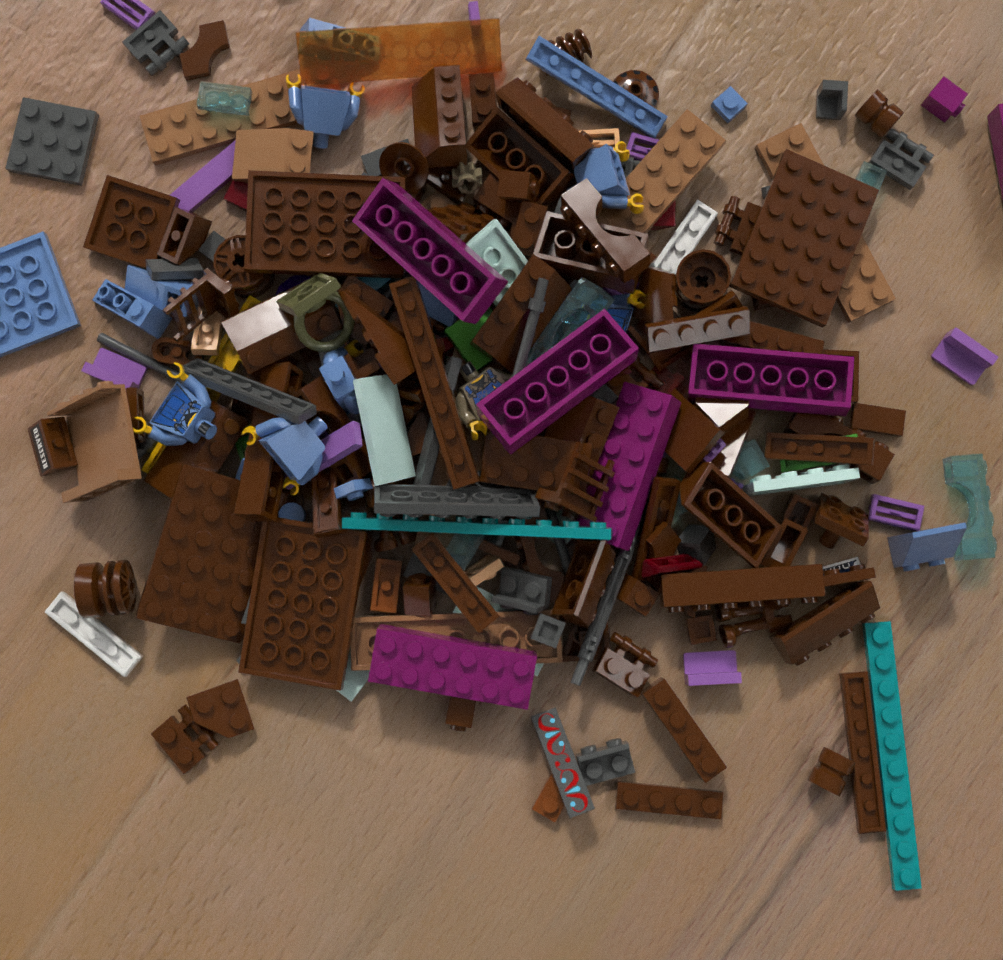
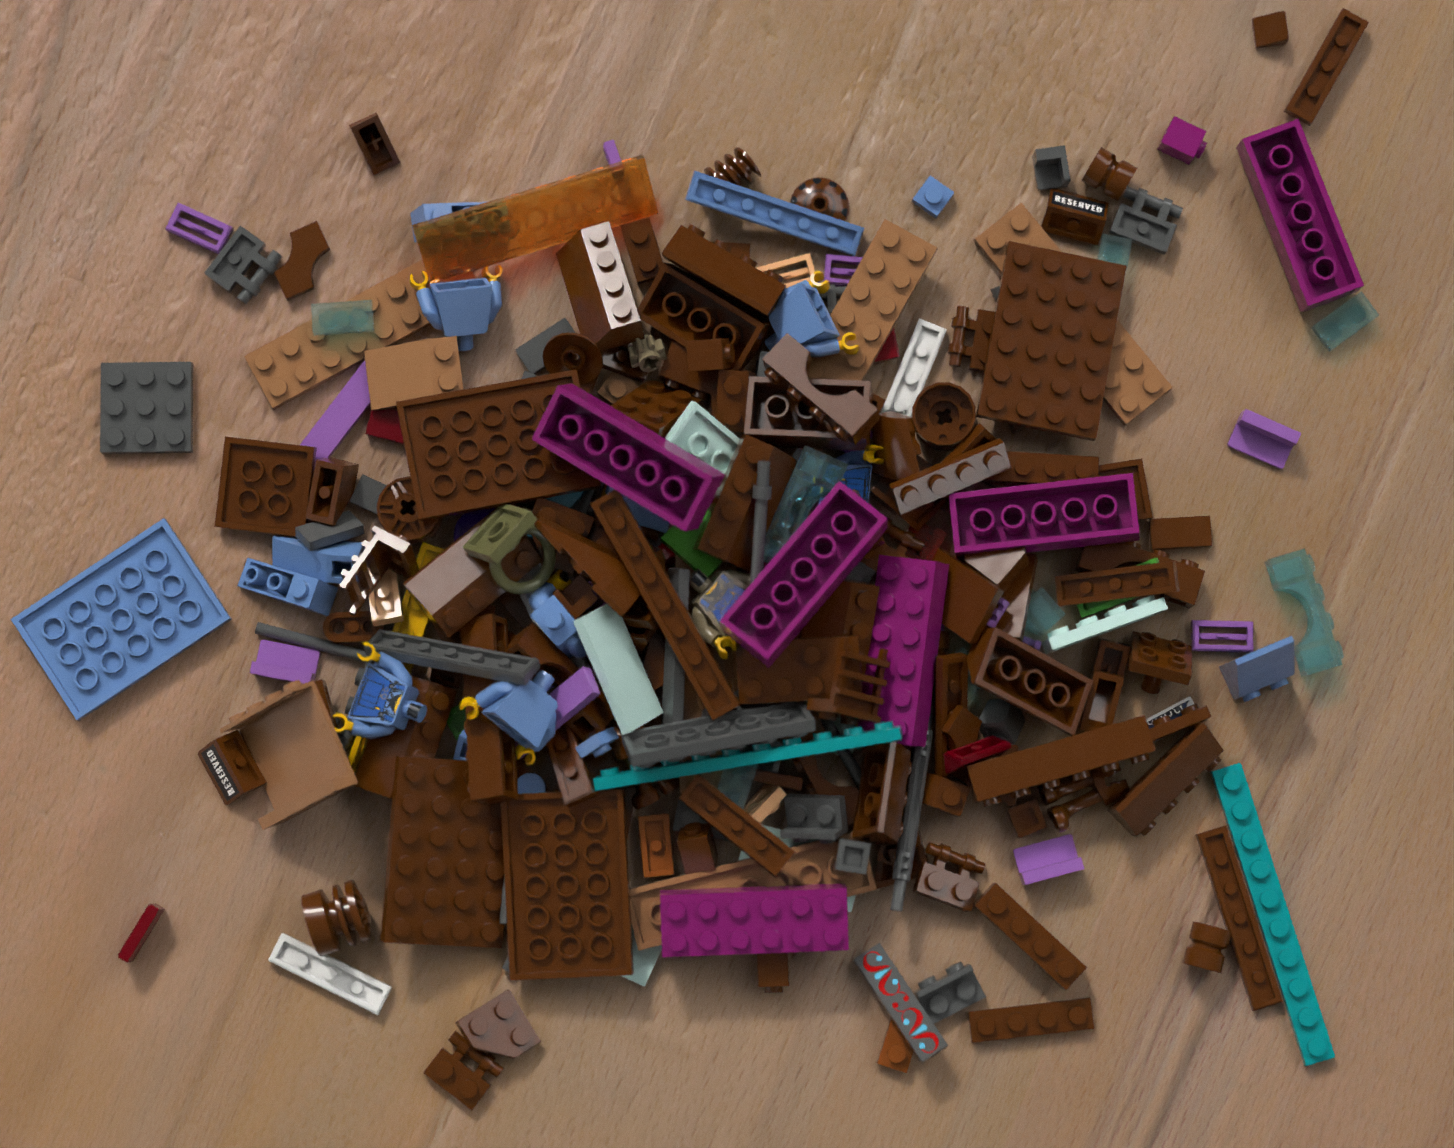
camera: 15 degrees left, 0 degrees up
(842, 144) = (1075, 216): none -> reddish brown panel

